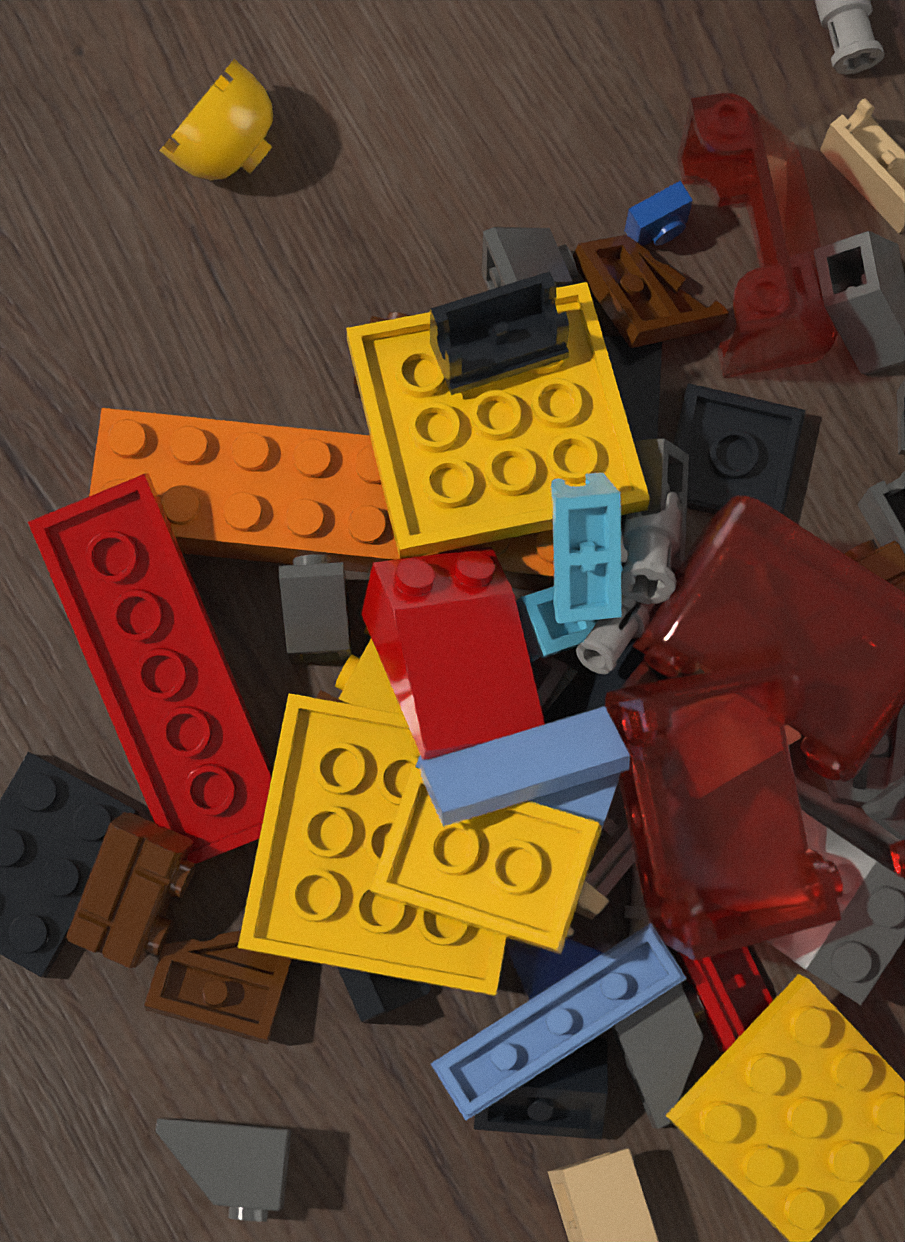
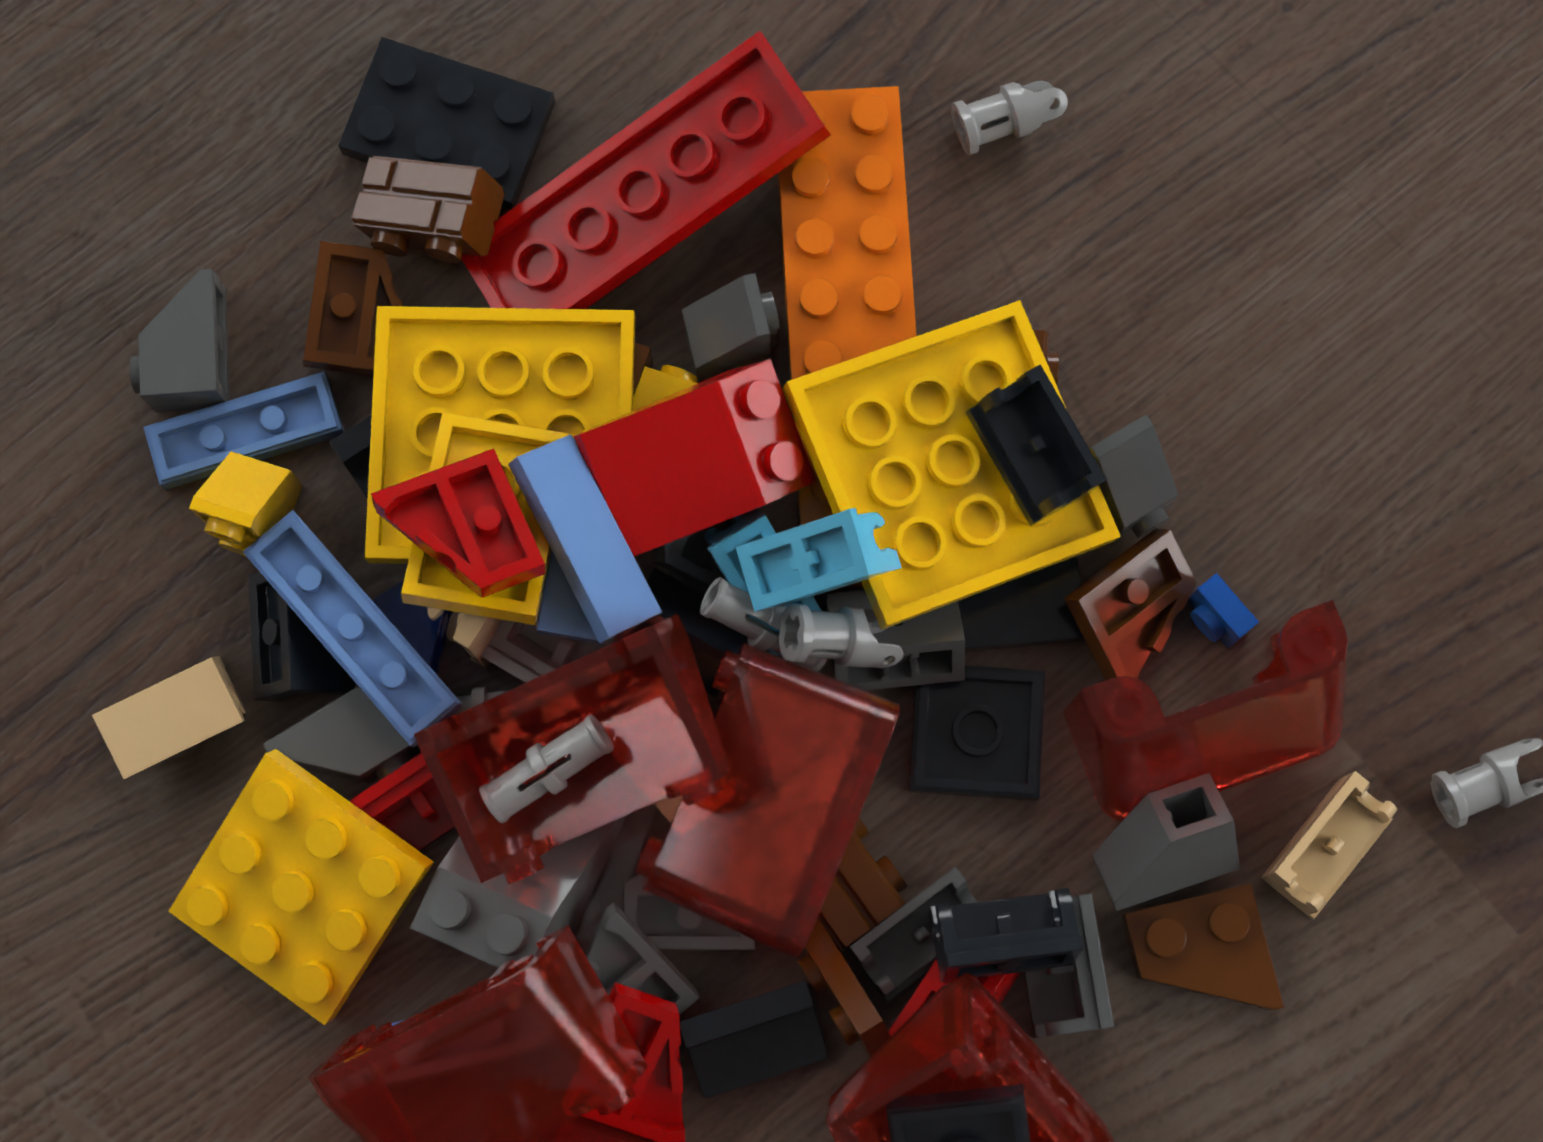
camera: 80 degrees right, 0 degrees up
(138, 319) = (1012, 111): none -> light grey piece
(224, 128) = (1224, 153): yellow cylinder -> none
(321, 1116) = (250, 425): none -> medium blue tile
(407, 1114) = (244, 500): none -> yellow slope
(499, 872) = (466, 523): none -> red wing
(735, 844) = (509, 792): none -> light grey pin

